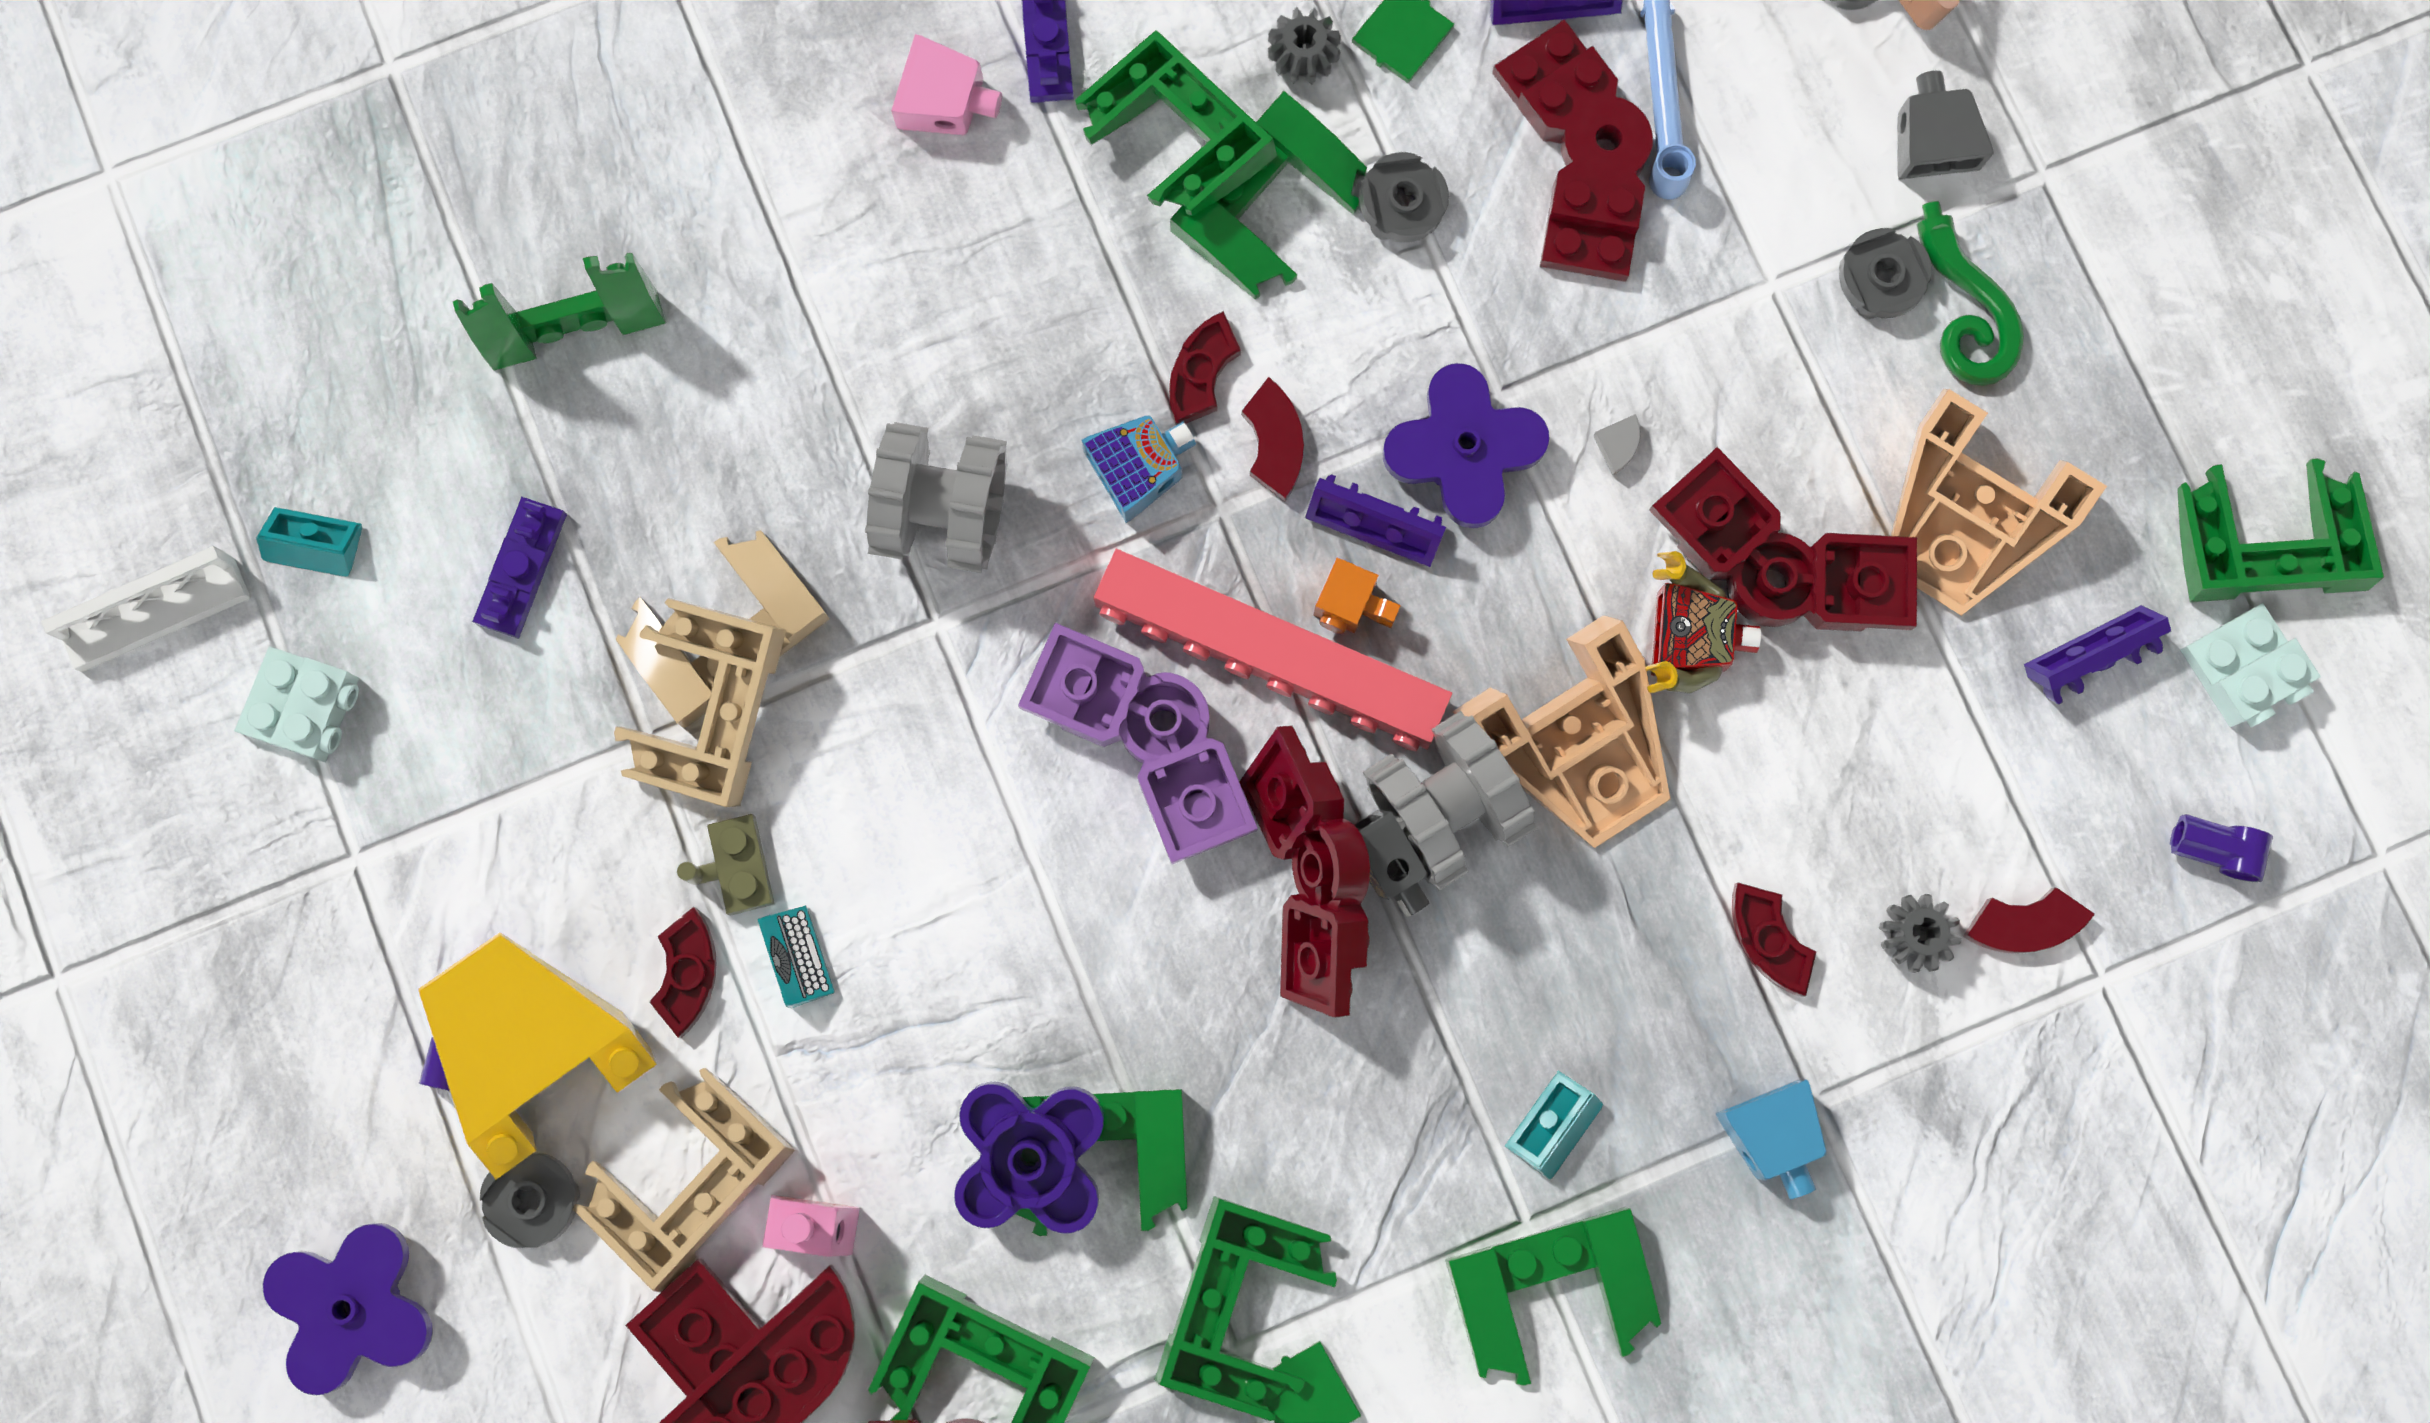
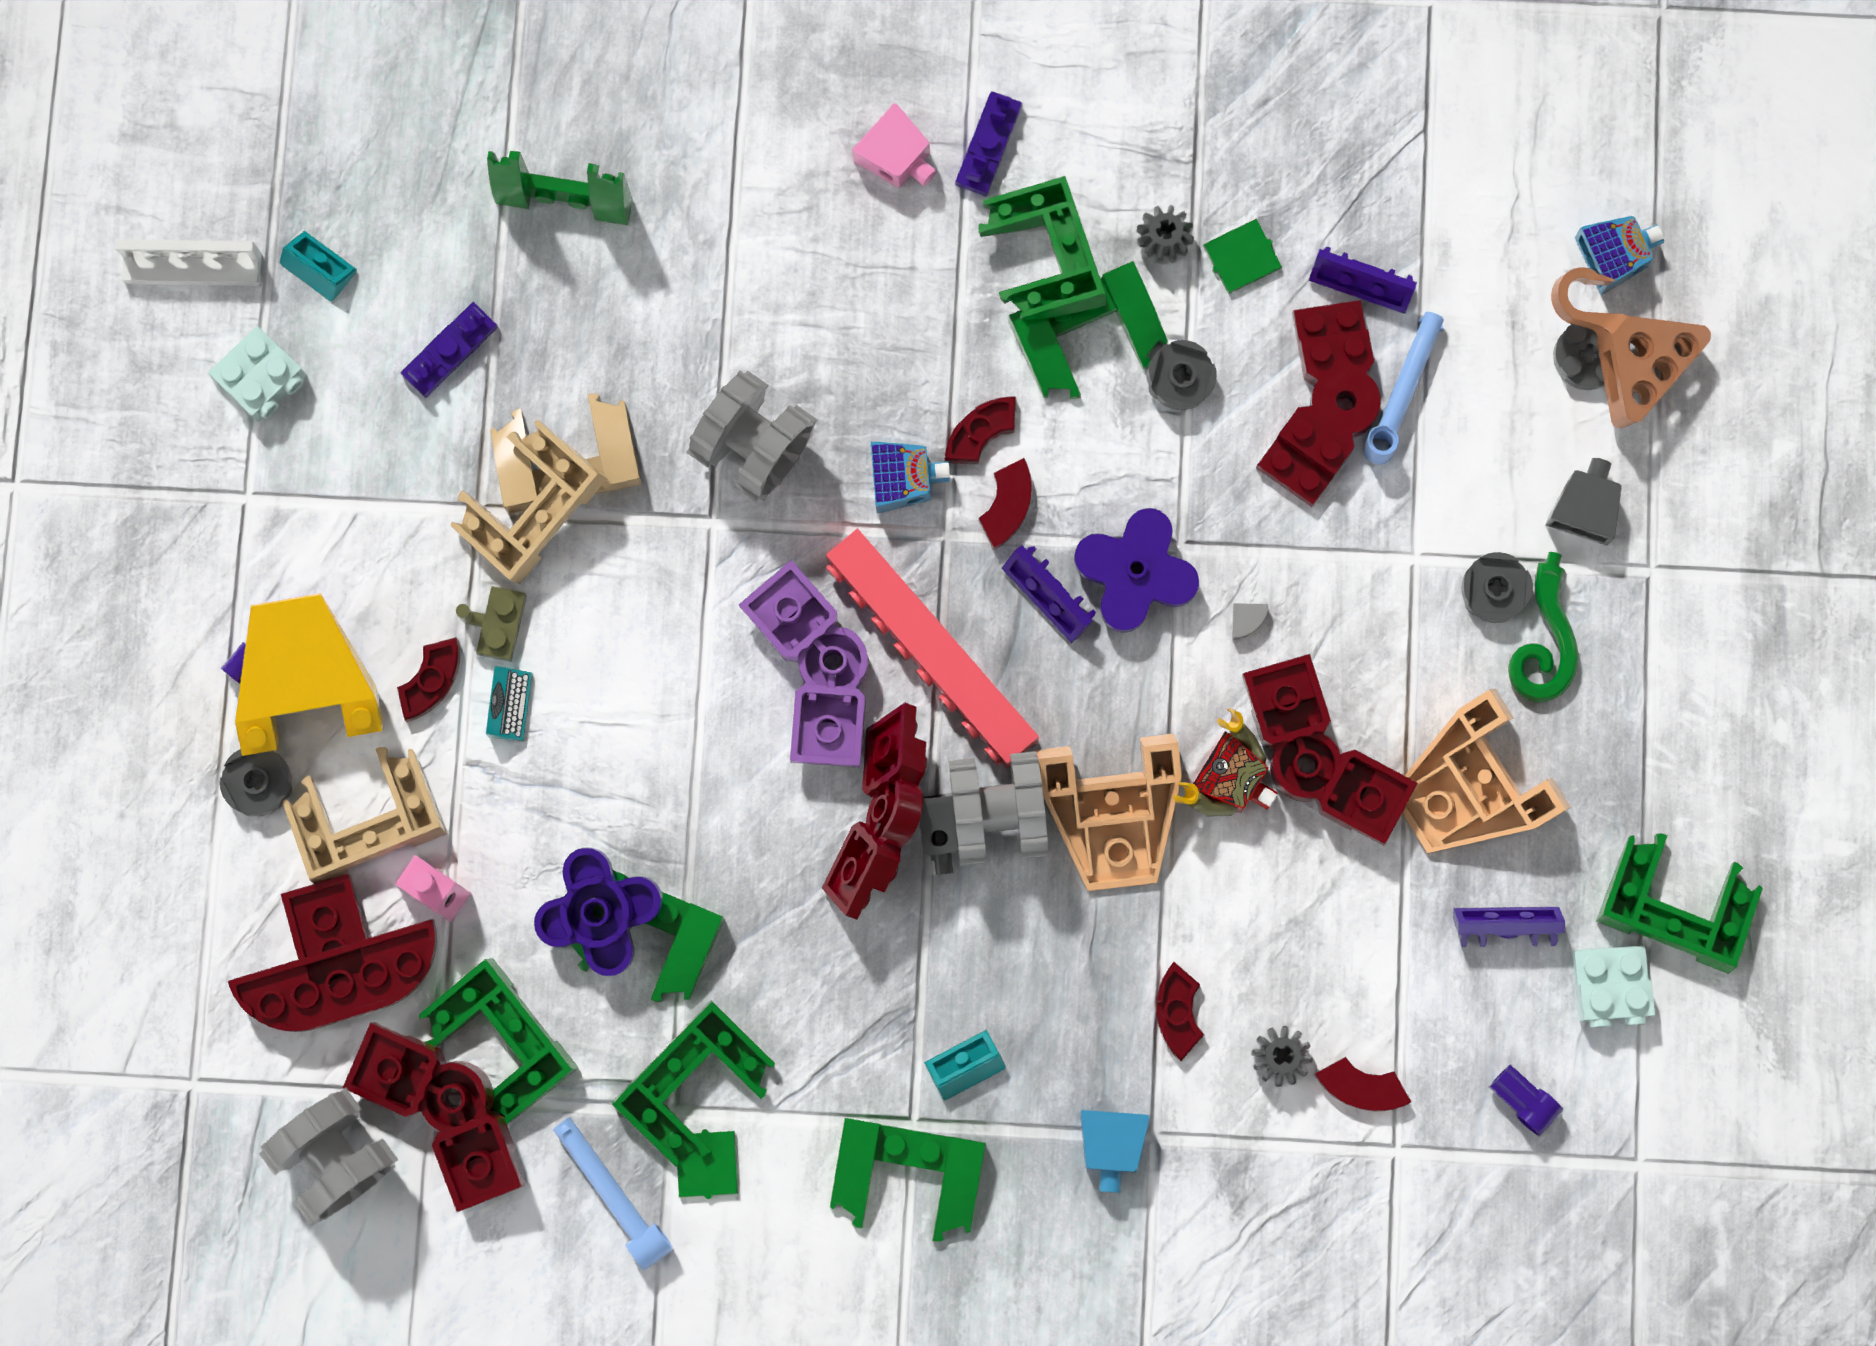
camera: 30 degrees right, 0 degrees up
(380, 1319) = (123, 813): dark purple plant -> none
(1349, 596) = (1003, 637): orange brick -> none

